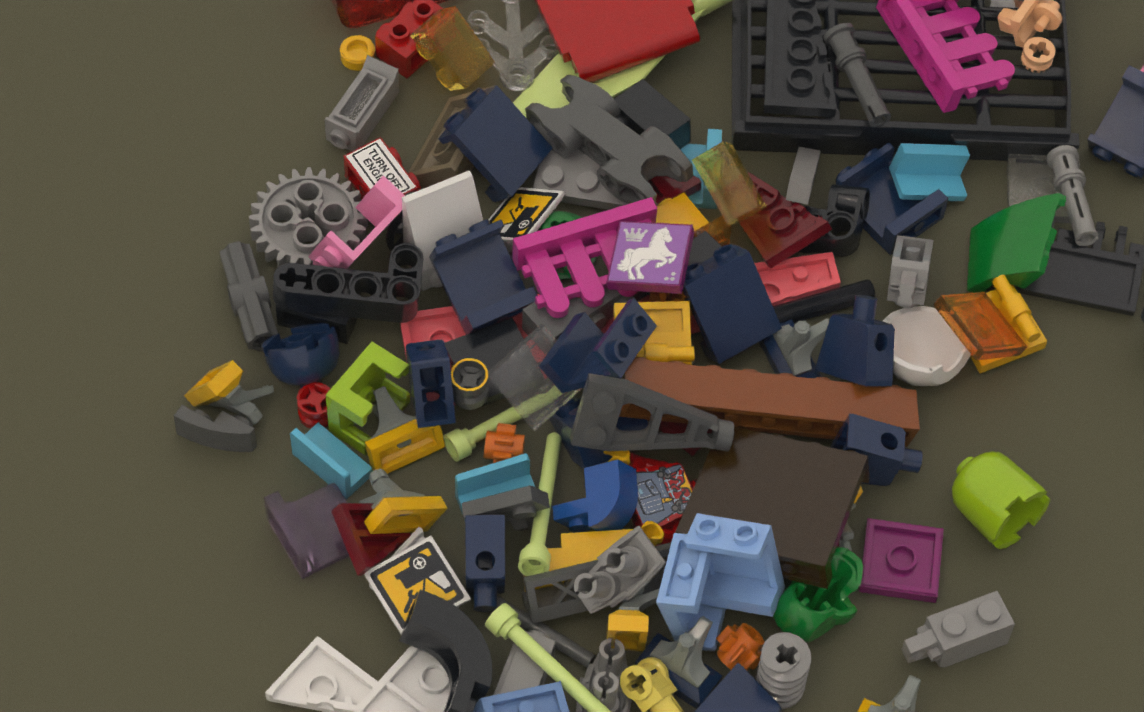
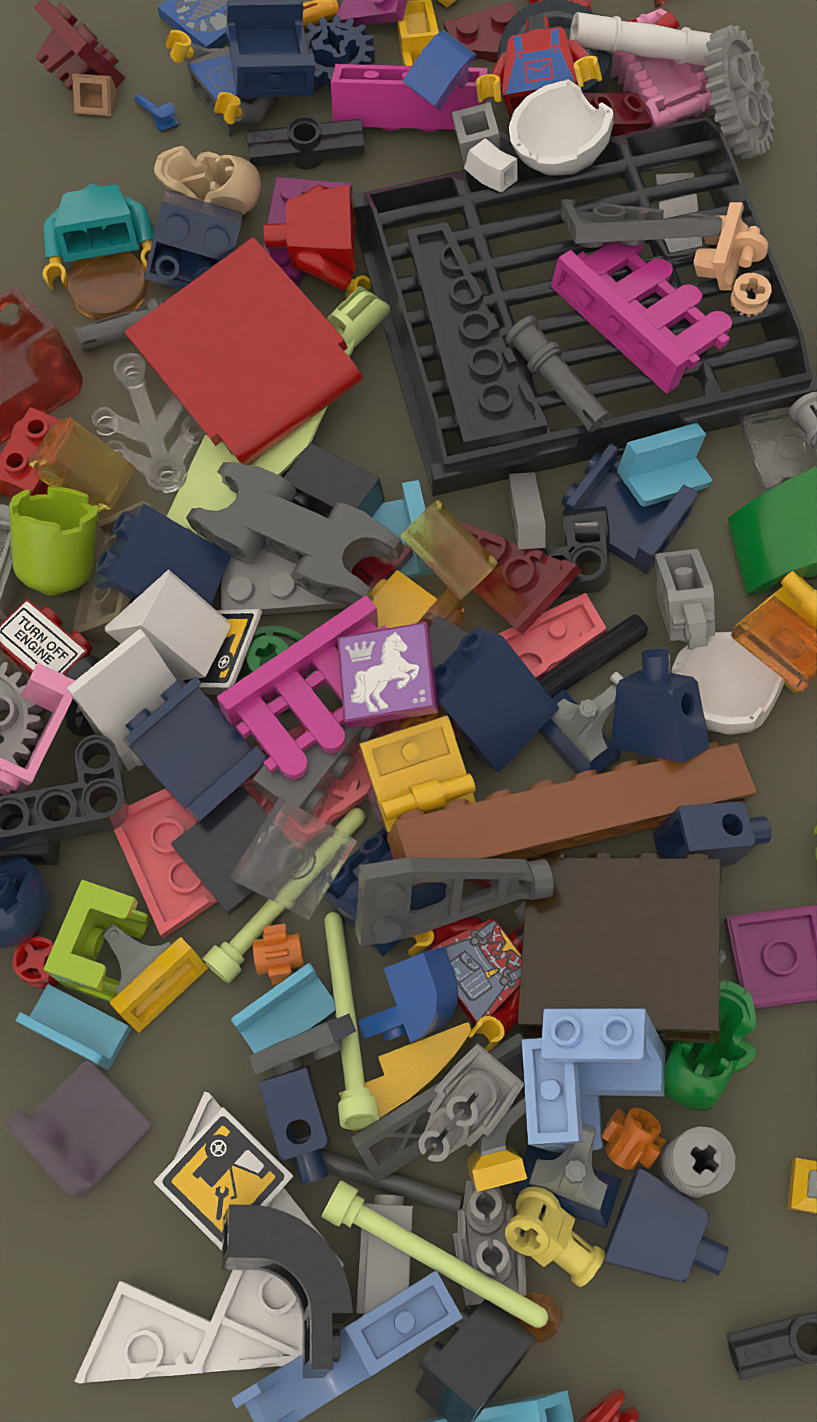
camera: 10 degrees left, 10 degrees up
(364, 548) = (148, 1124): dark red wing -> none
(399, 509) = (172, 1078): yellow piece -> none
(414, 98) = (53, 539): none -> lime cylinder
(430, 373) = (155, 890): dark blue torso -> none
(472, 375) = (208, 889): dark grey wheel -> none
(498, 183) = (178, 625): none -> white slope
(587, 349) = (359, 821): dark blue panel -> none

